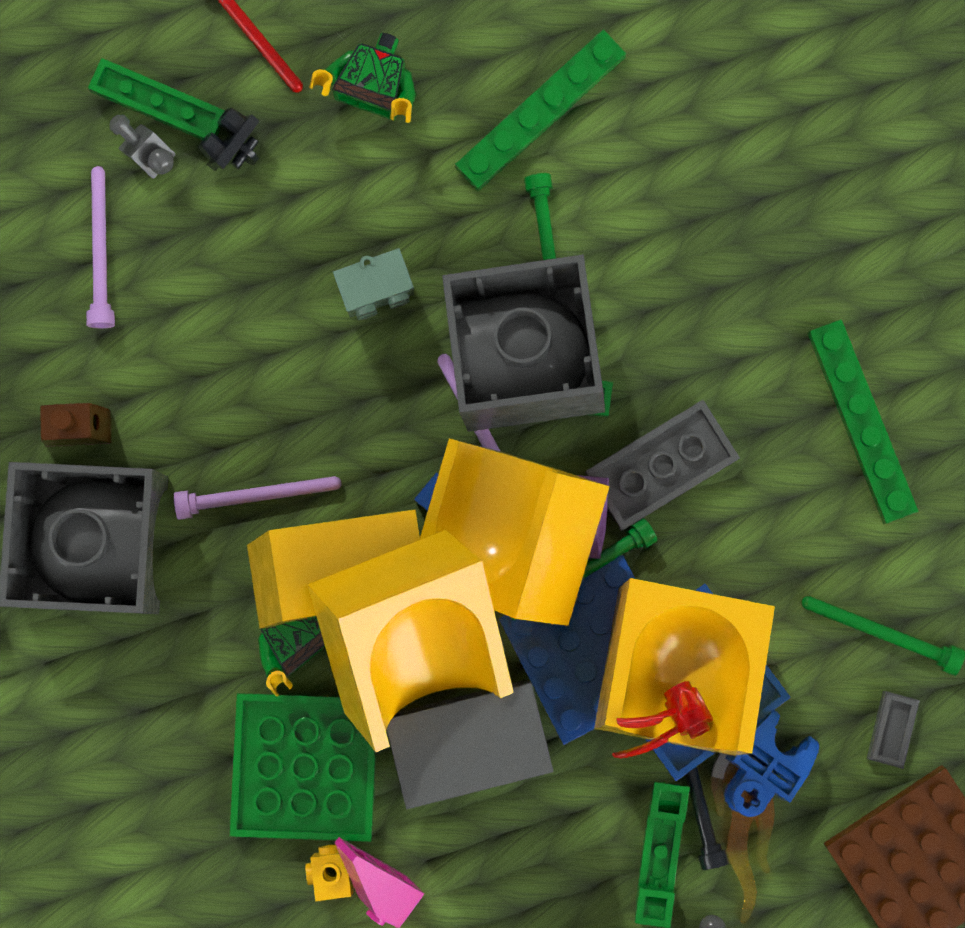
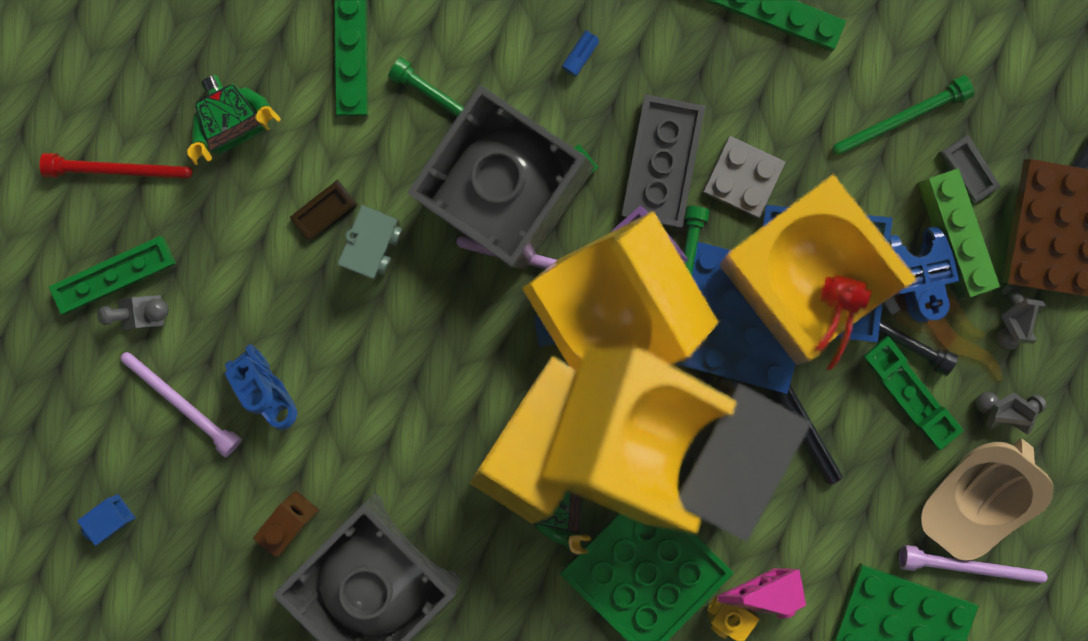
camera: 50 degrees left, 5 degrees up
(171, 302) = (259, 388): none -> blue piece
(189, 504) = (406, 495): lavender piece -> none
(221, 152) = (181, 237): black hips -> none
(366, 224) = (323, 210): none -> dark brown tile
(546, 800) = (812, 439): none -> black axle
(688, 317) = (580, 53): none -> blue piece
(711, 545) = (744, 177): none -> light grey plate
(806, 887) = (1019, 319): none -> dark grey piece
(835, 763) = (953, 213): none -> bright green brick

